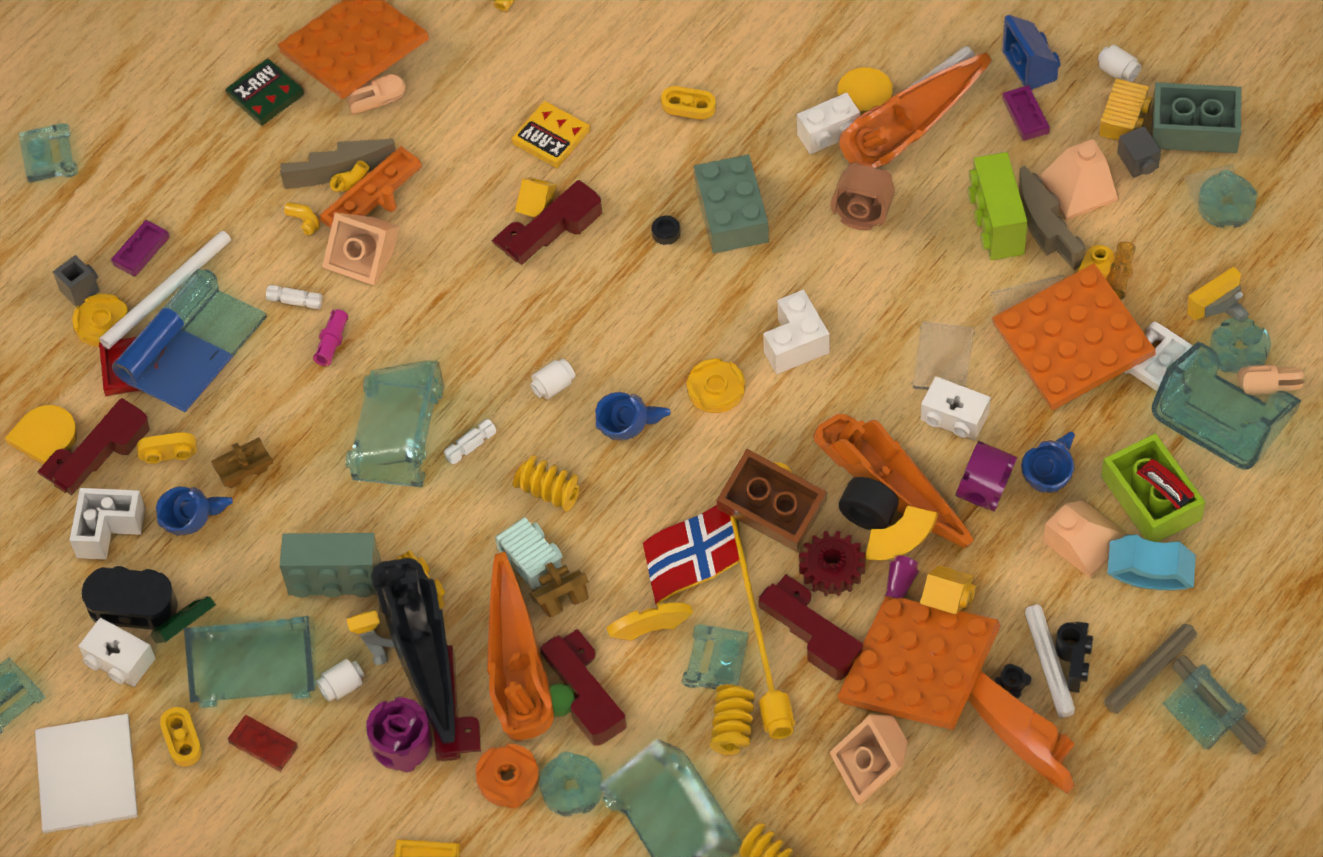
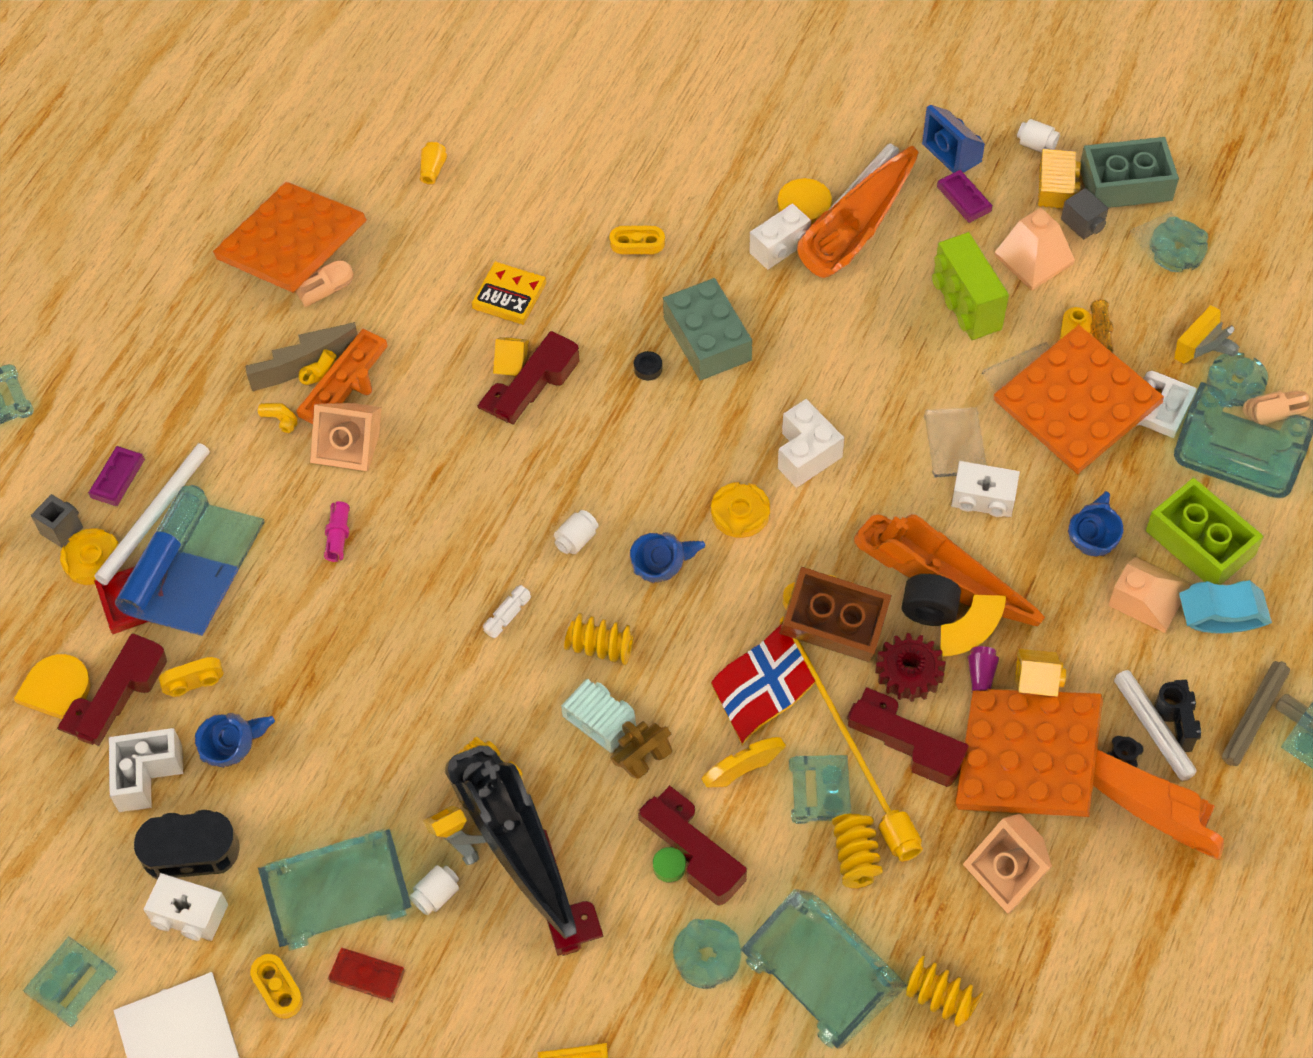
camera: 15 degrees left, 0 degrees up
(182, 619) = (250, 858): dark green tile -> none
(242, 462) = (275, 677): pearl gold hips -> none
(264, 91) = (209, 299): dark green tile -> none
(294, 297) = (289, 497): white axle -> none
(329, 563) = (395, 767): sand green brick -> none
(395, 423) = (427, 607): clear light blue windscreen -> none
(399, 734) = (513, 936): magenta brick -> none
(510, 792) = (645, 975): orange plate -> none
(515, 663) = (615, 835): orange piece -> none
(863, 196) = (836, 299): nougat brick -> none
(986, 476) = (1038, 550): magenta brick -> none
(1043, 220) = (1024, 301): dark tan slope -> none
(1166, 483) = (1220, 524): sticker -> none

